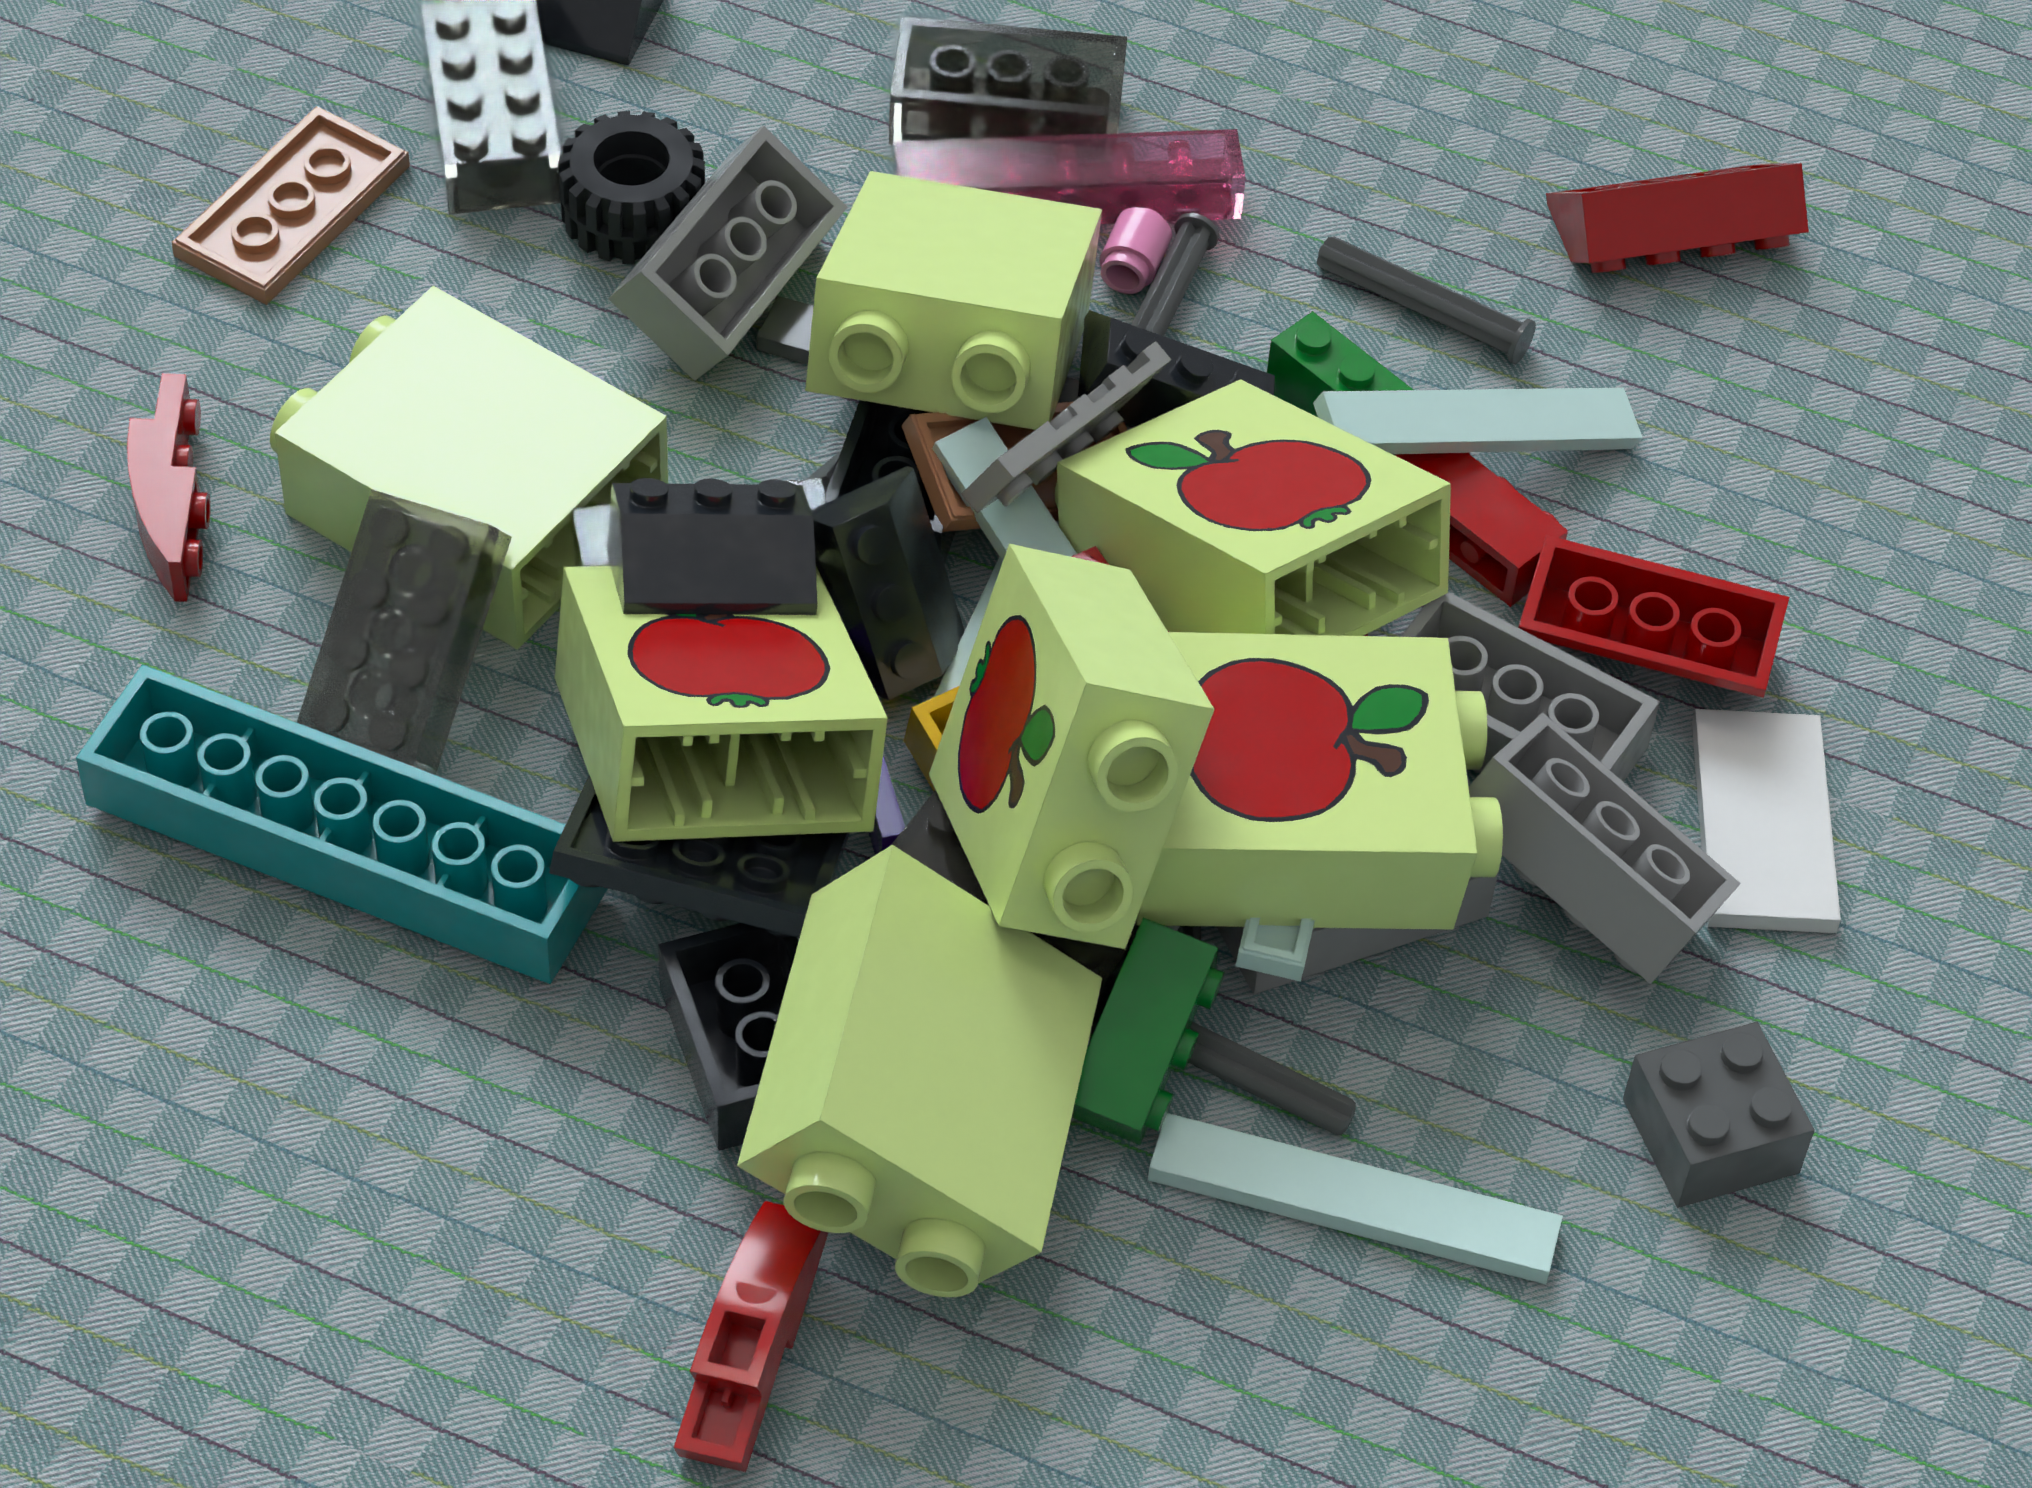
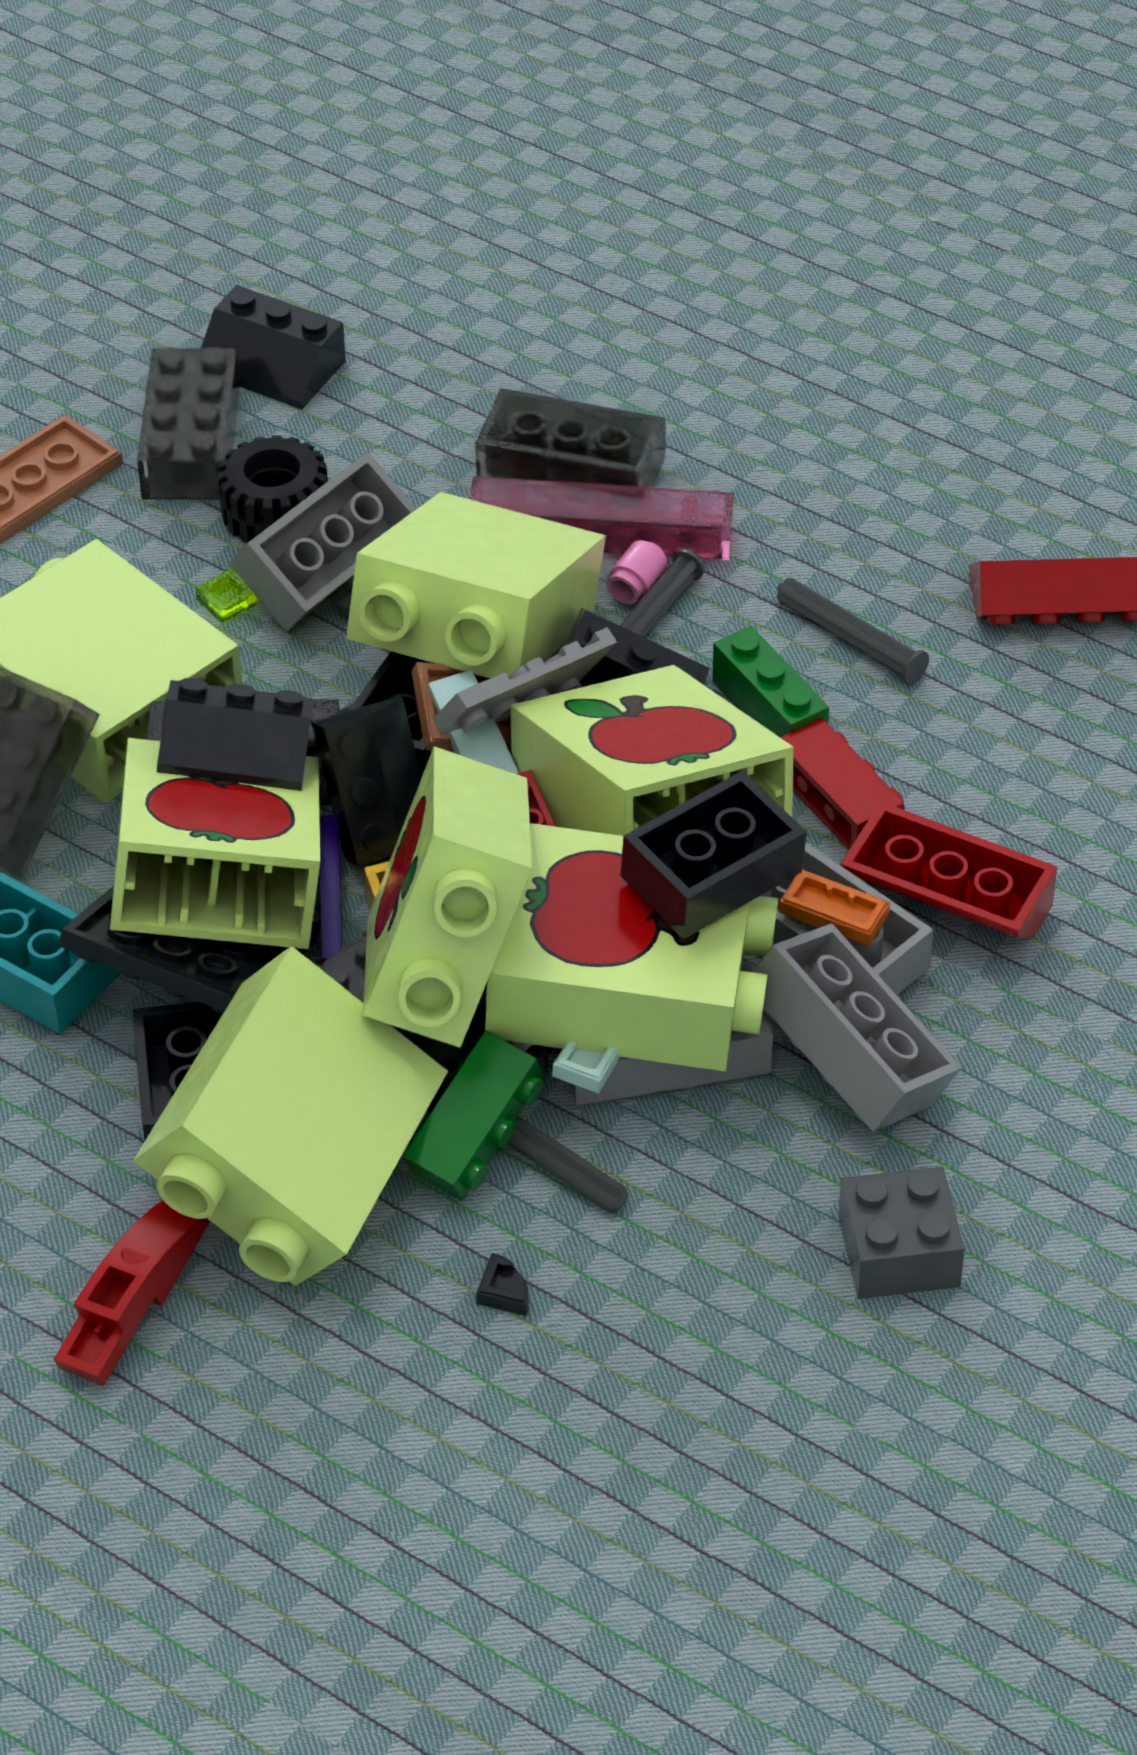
camera: 15 degrees right, 5 degrees down
(602, 339) = (225, 596): none -> clear neon green tile
(1230, 1257) = (503, 1287): none -> black tile
(1355, 1198) = (611, 1258): light aqua tile -> none
(1408, 650) = (713, 854): none -> black brick
(1484, 419) = (860, 716): light aqua tile -> none
(1531, 685) = (827, 902): none -> orange plate
(1767, 818) = (1006, 1030): white tile -> none

